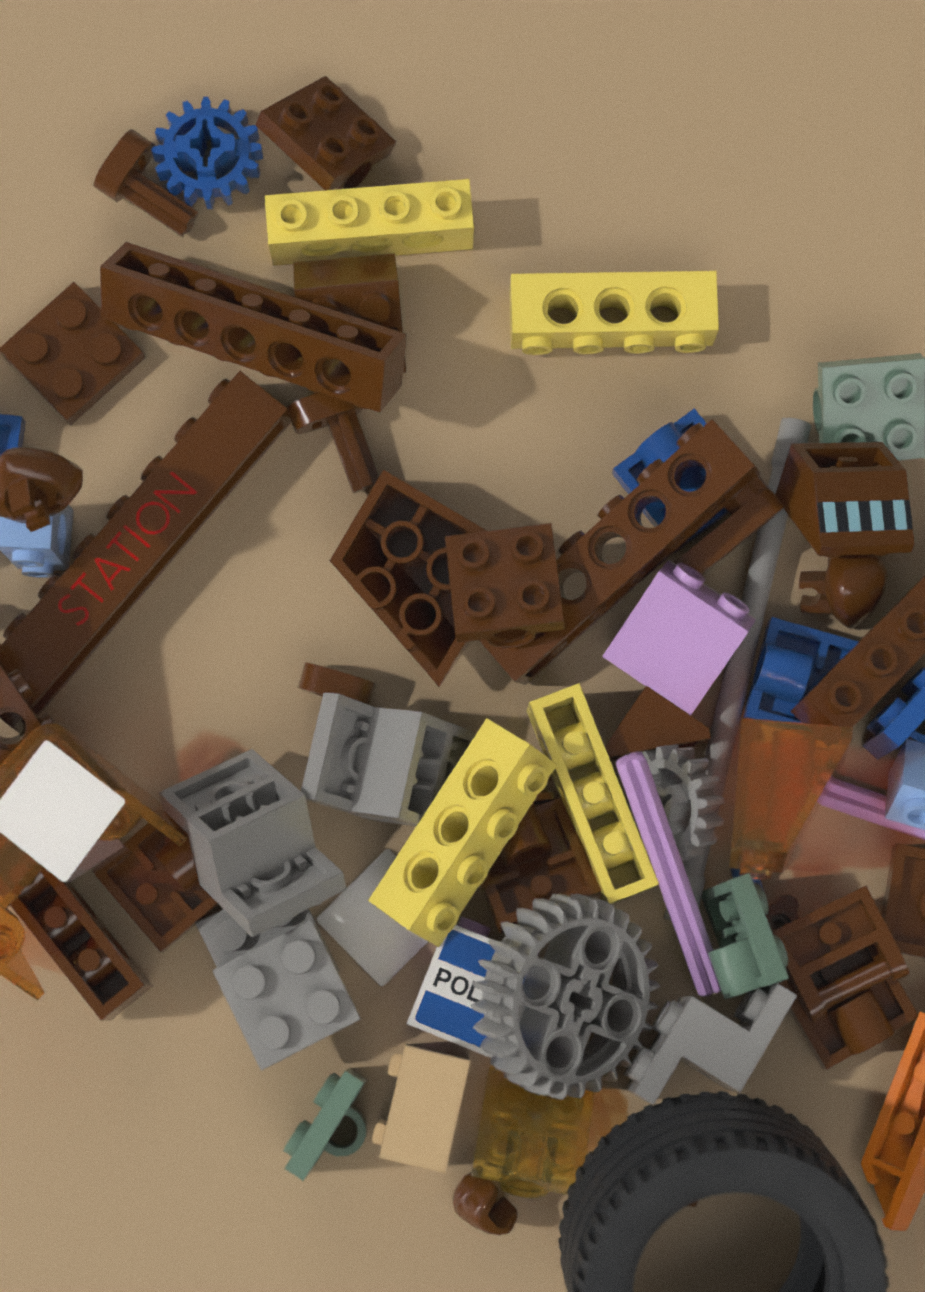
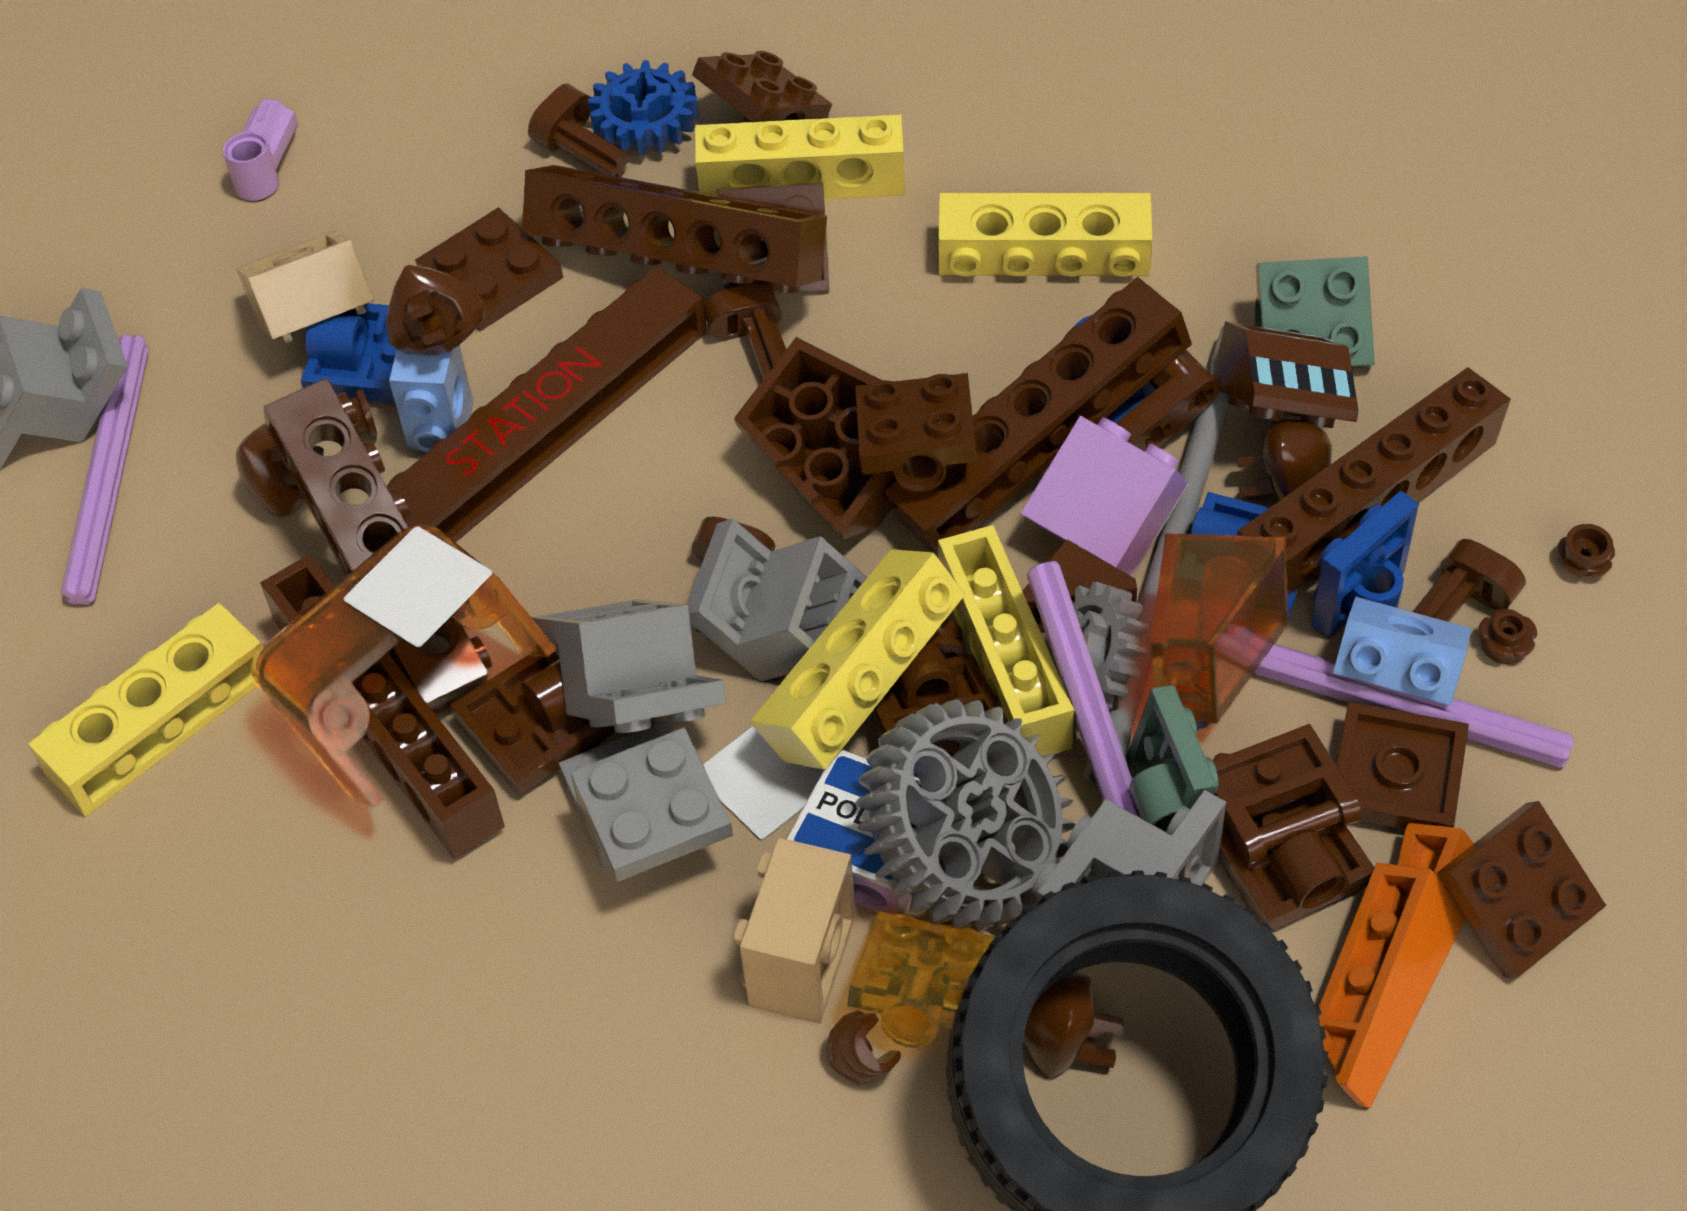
camera: 10 degrees right, 25 degrees down
(312, 1139) = (687, 934): sand green plate -> none

